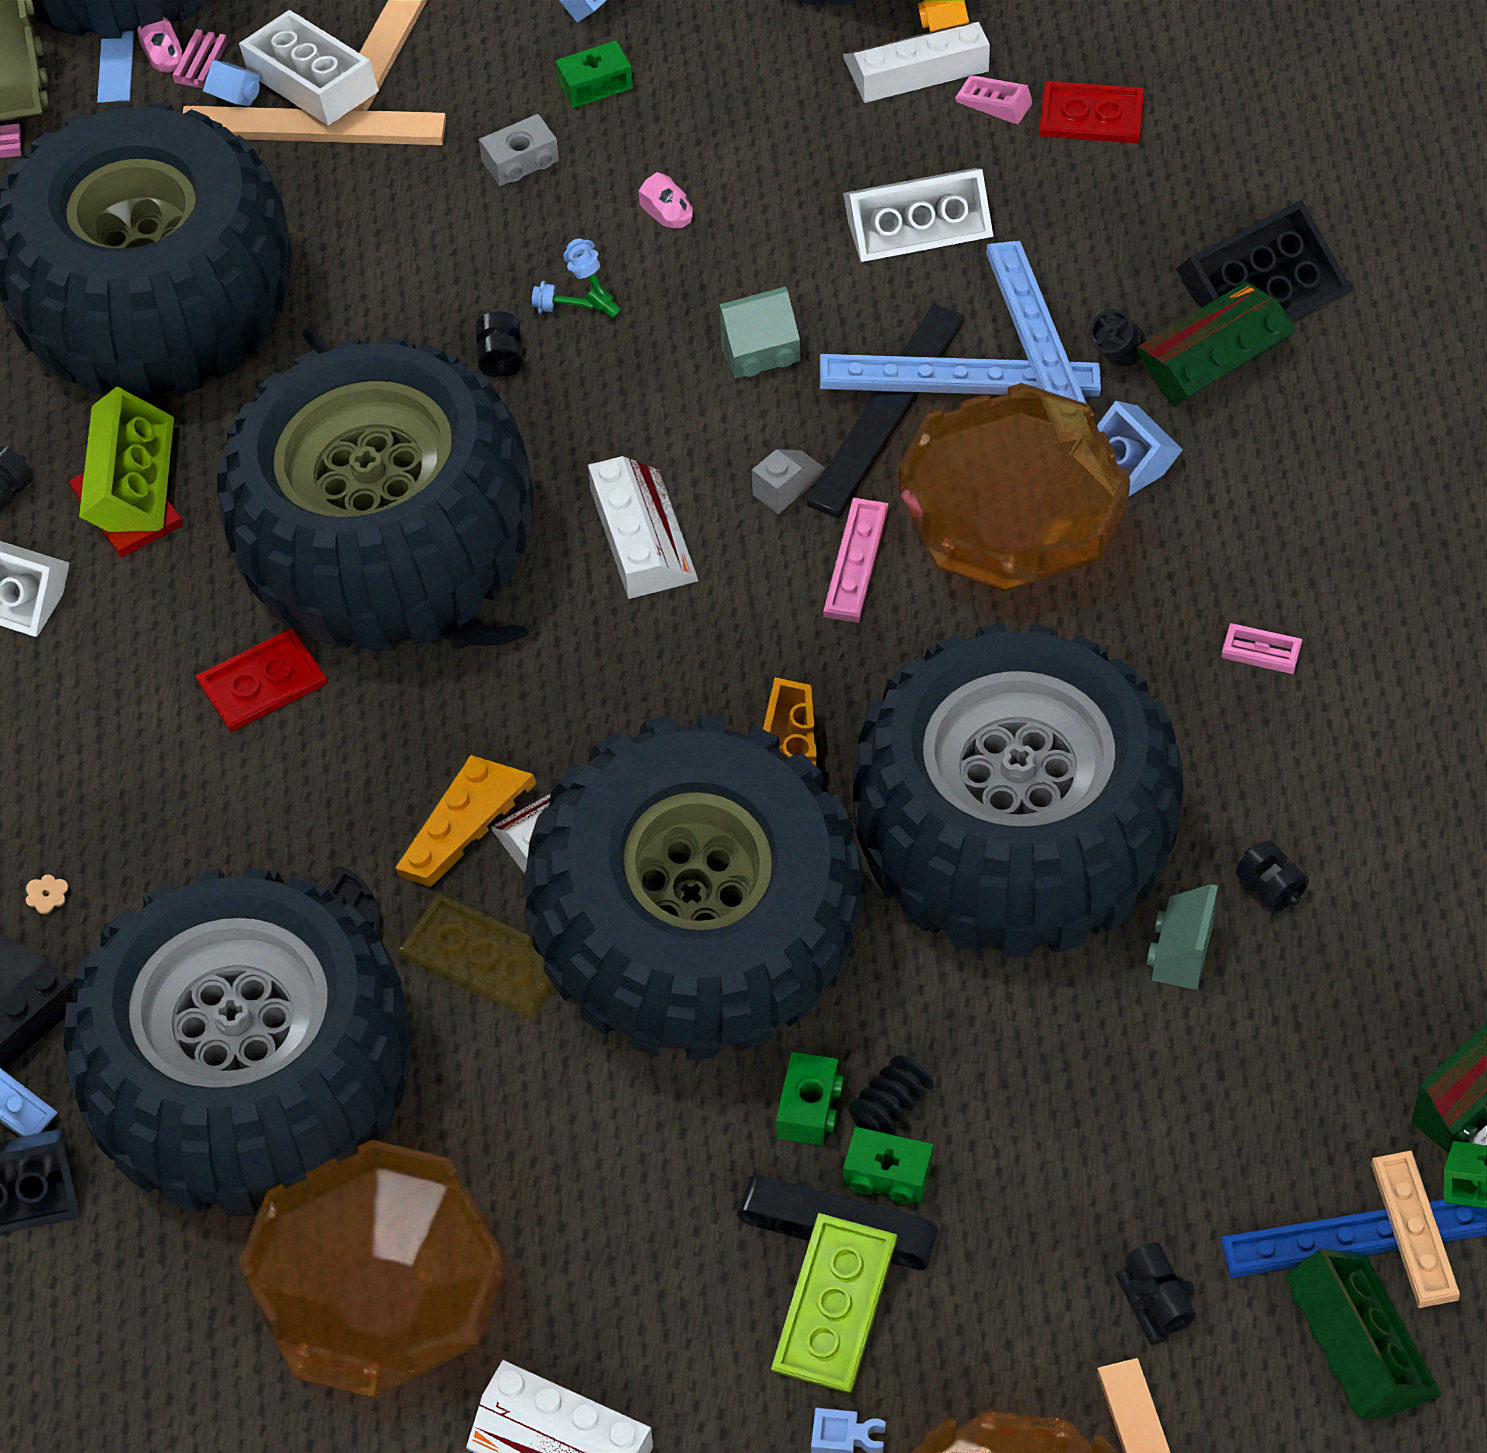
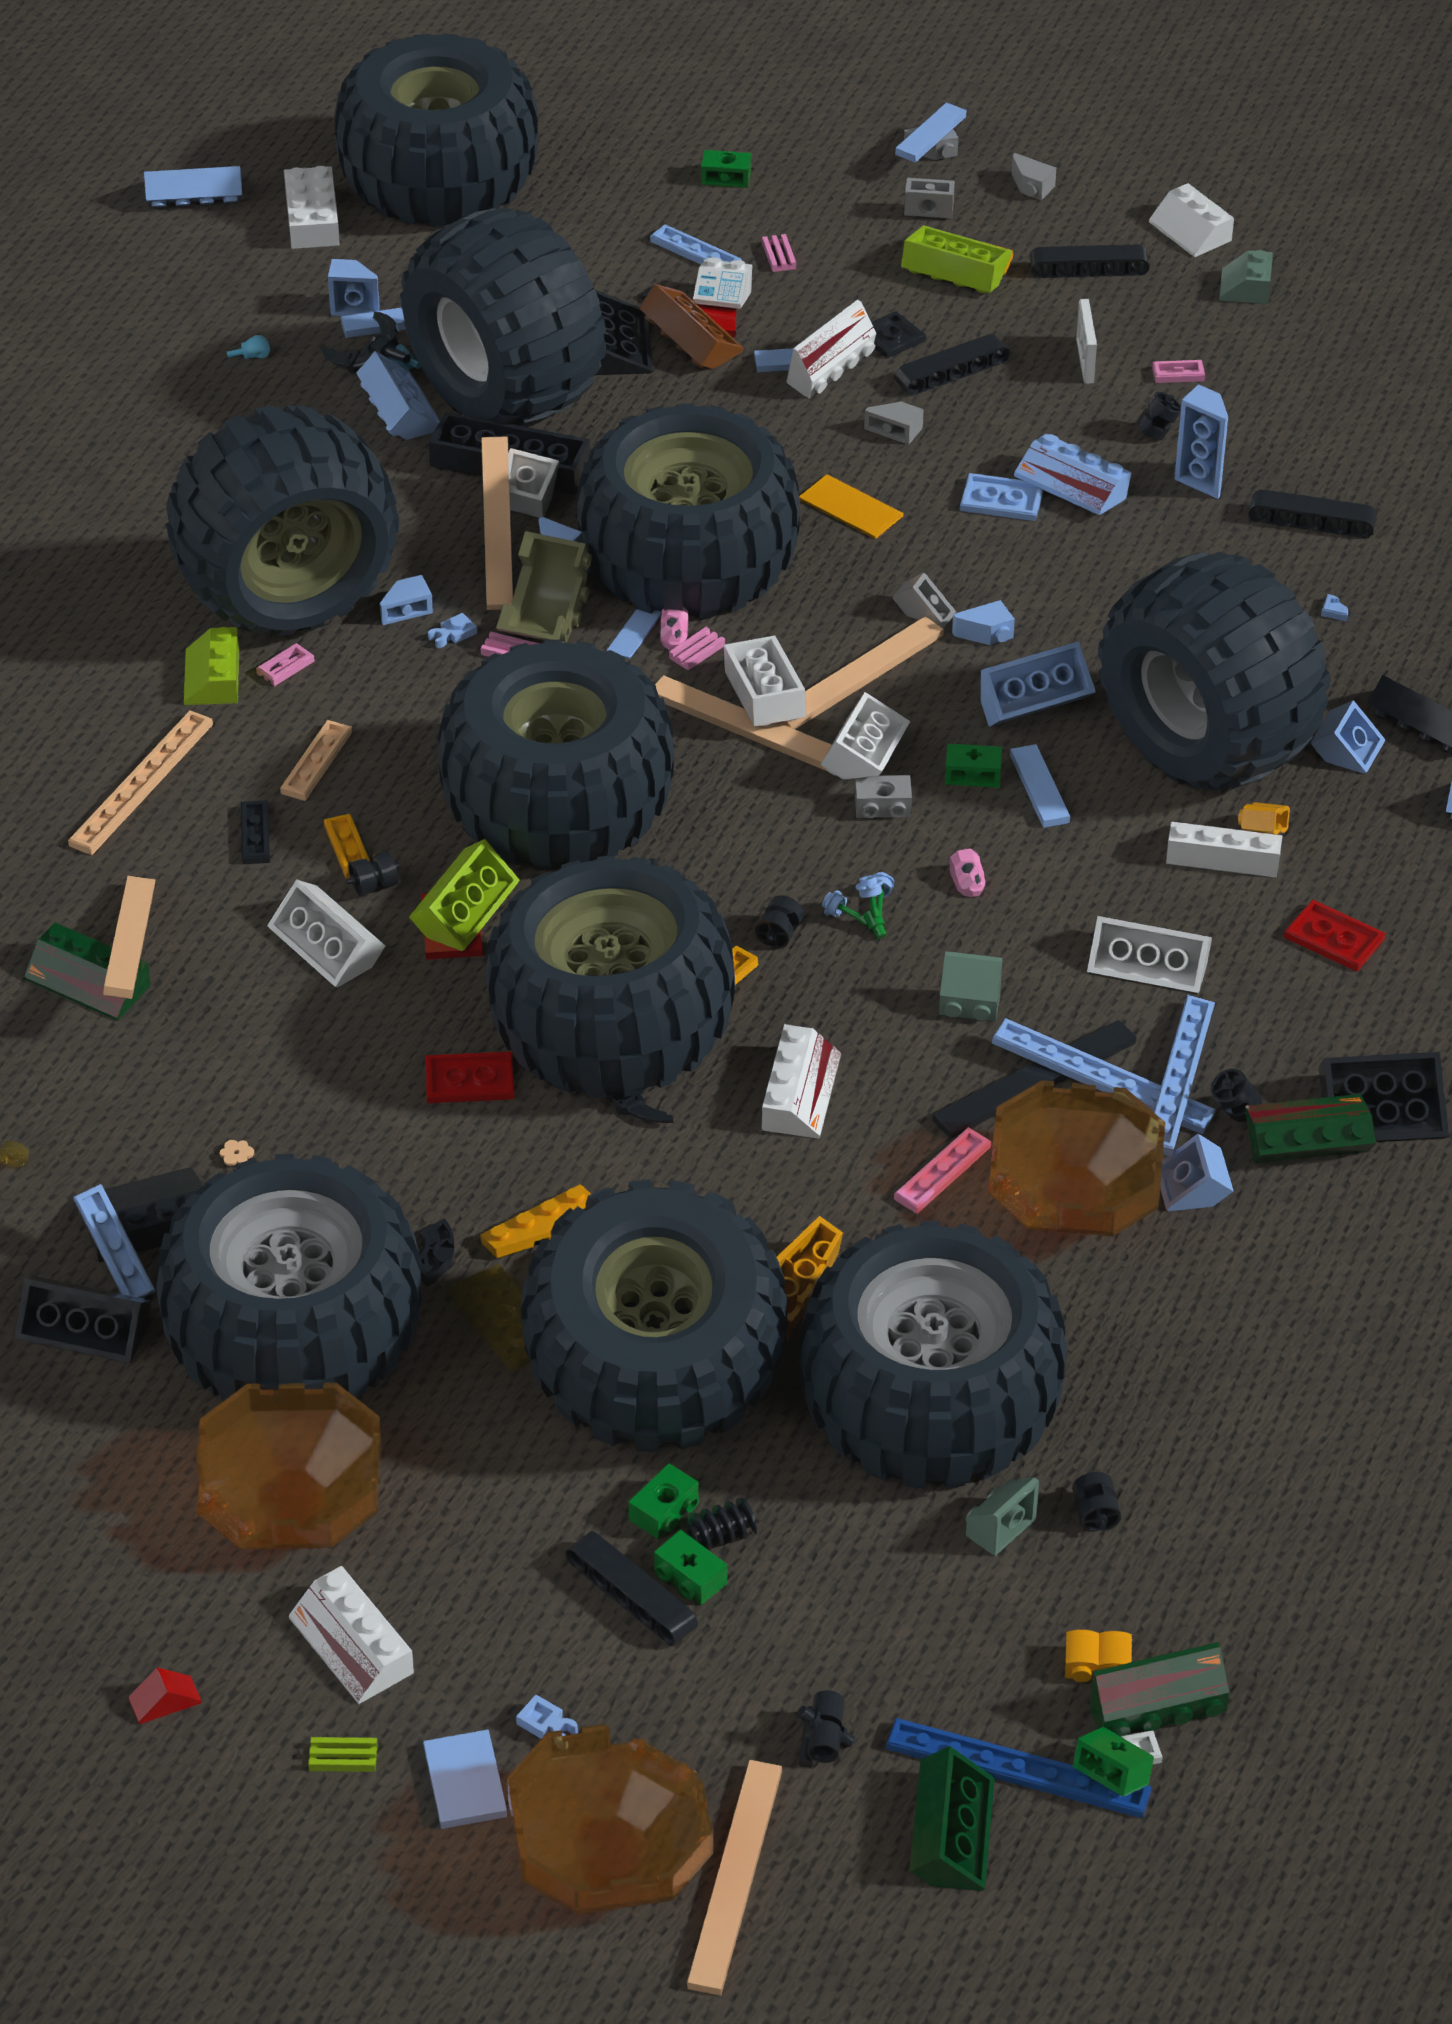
camera: 25 degrees right, 10 degrees down
(232, 83) = (705, 672): light blue brick -> none
(463, 93) = (865, 740): none -> white slope
(676, 68) = (1040, 786): none -> light blue tile
(784, 477) = (926, 1092): light grey slope -> none
(834, 1303) = (592, 1635): lime tile -> none
(1013, 107) = (1274, 910): bright pink slope -> none
(1260, 653) = (1199, 1354): bright pink tile -> none
(1387, 1058) = (1095, 1651): none -> light orange brick
(1415, 1229) = (1037, 1773): light nougat tile -> none

